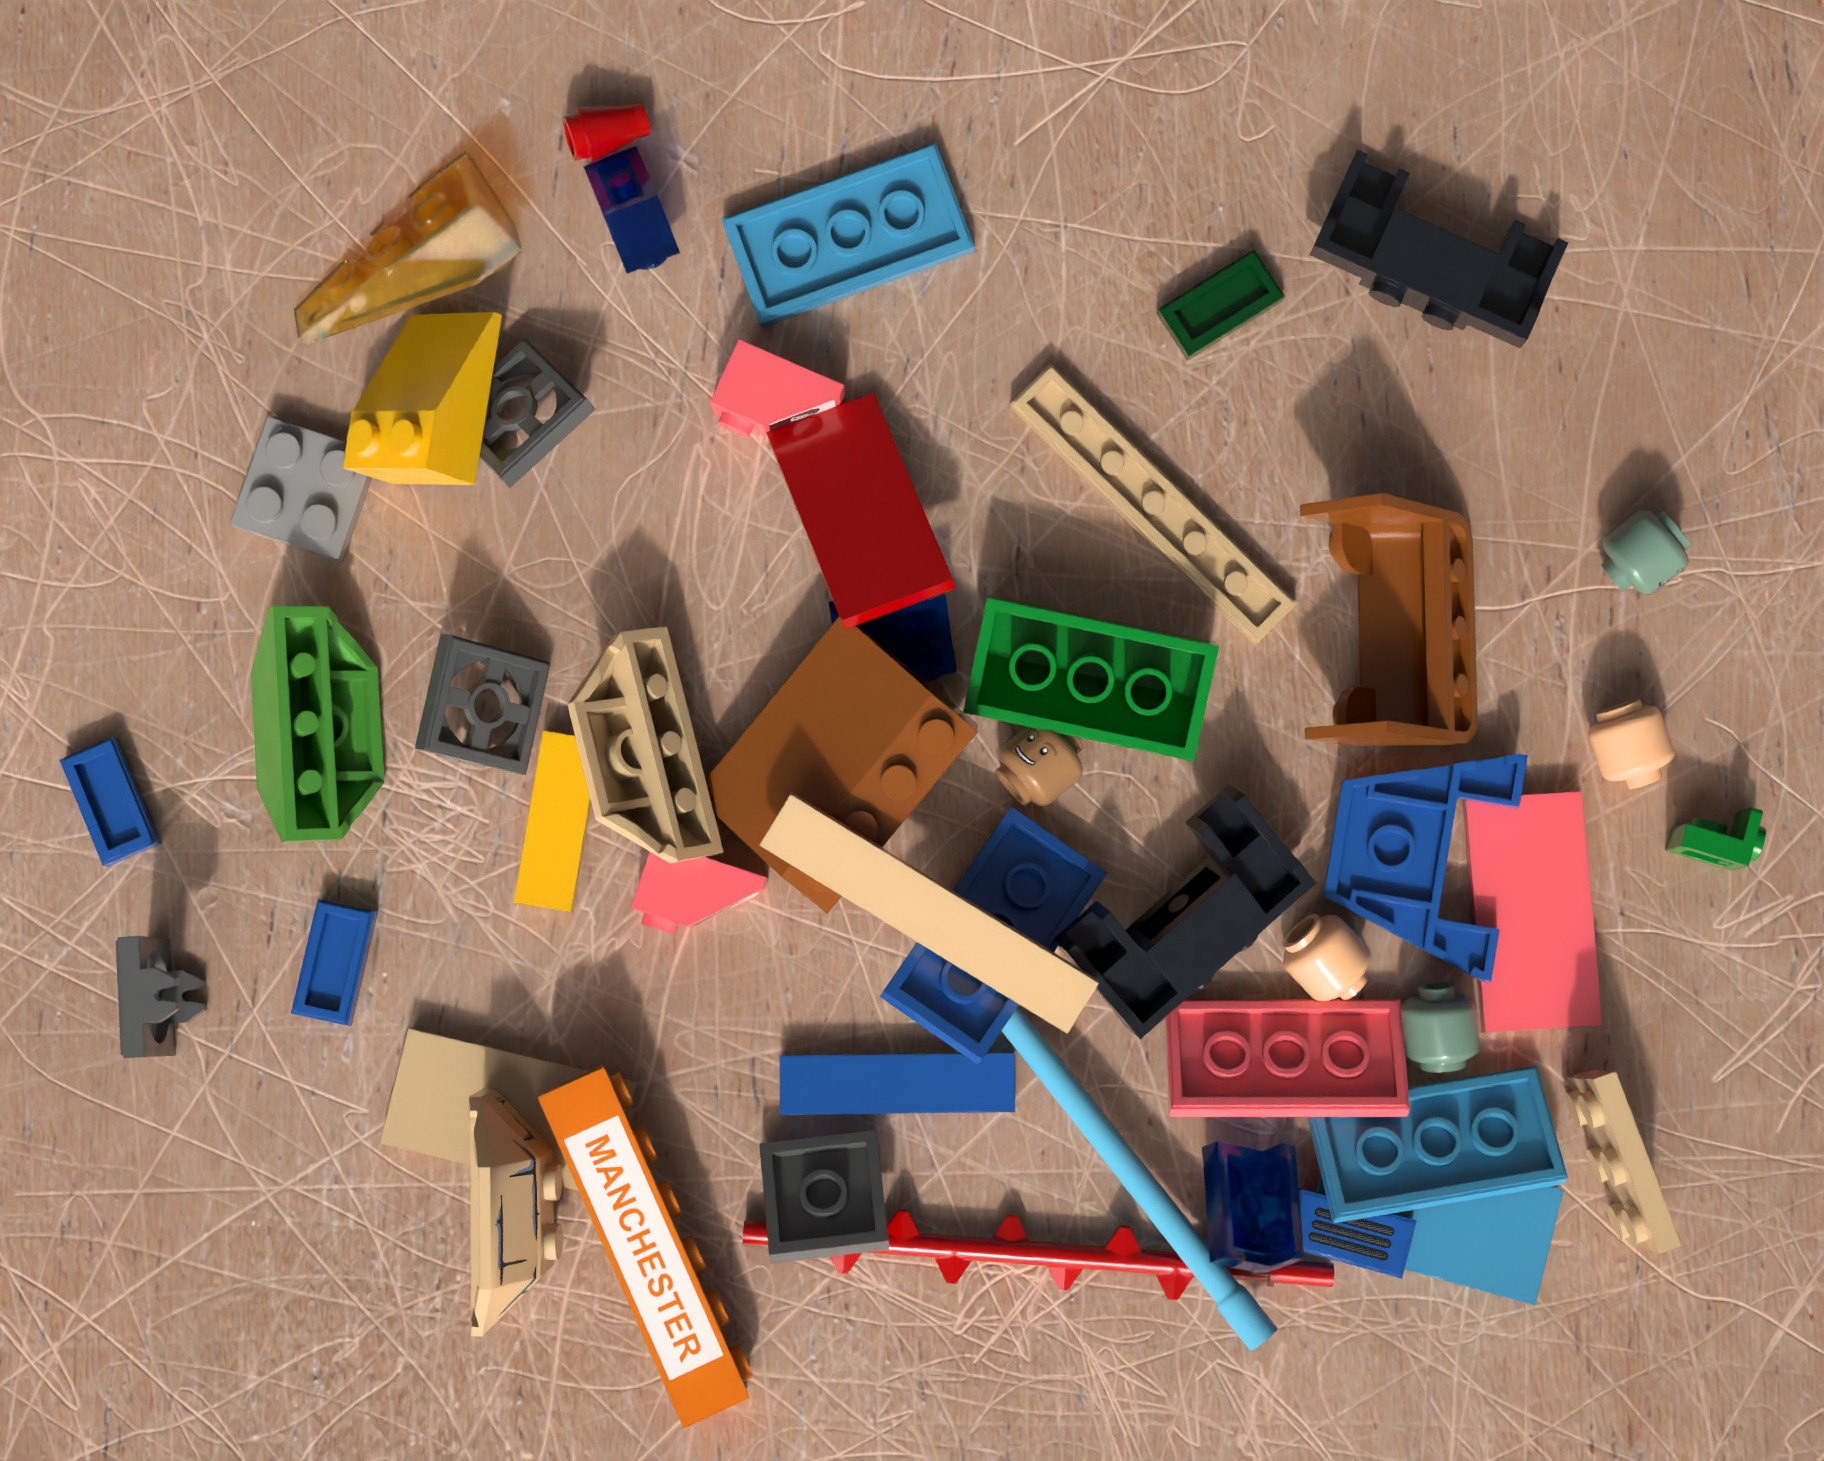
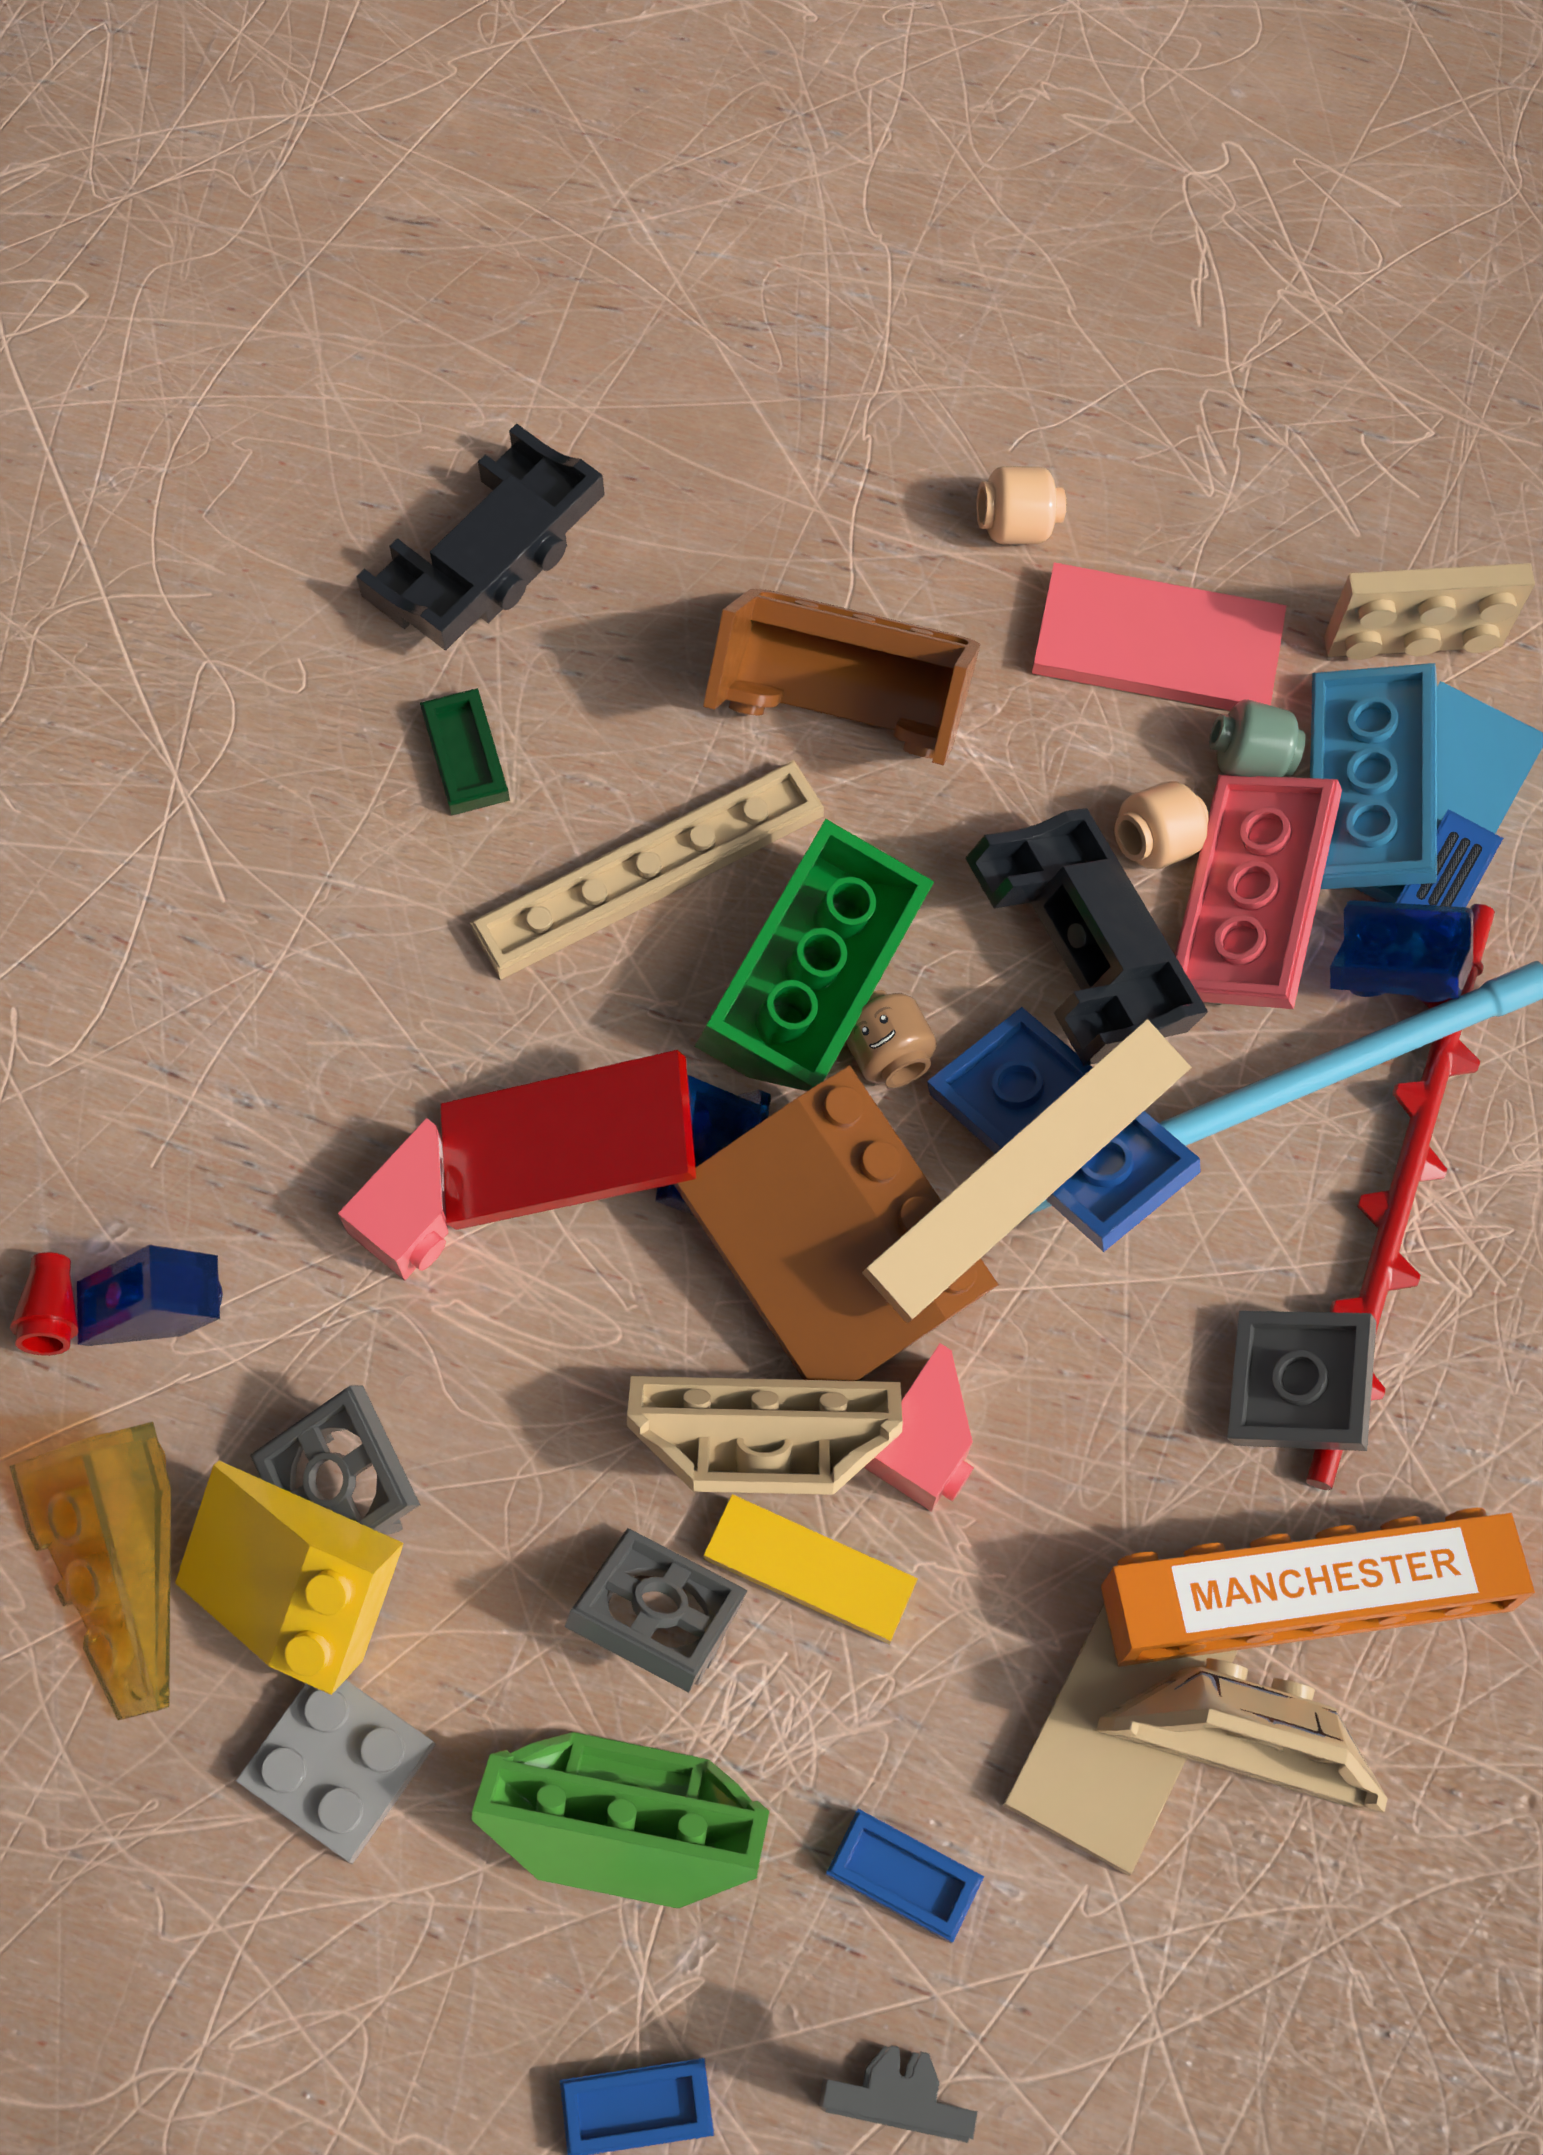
camera: 80 degrees left, 15 degrees down
(848, 235) = (259, 1089): dark azure tile -> none
(896, 1084) = (1192, 1285): blue tile -> none
(1395, 850) = (1070, 736): blue wing -> none
(1645, 551) = (837, 445): sand green head -> none
(1708, 840) = (1137, 458): green bracket -> none

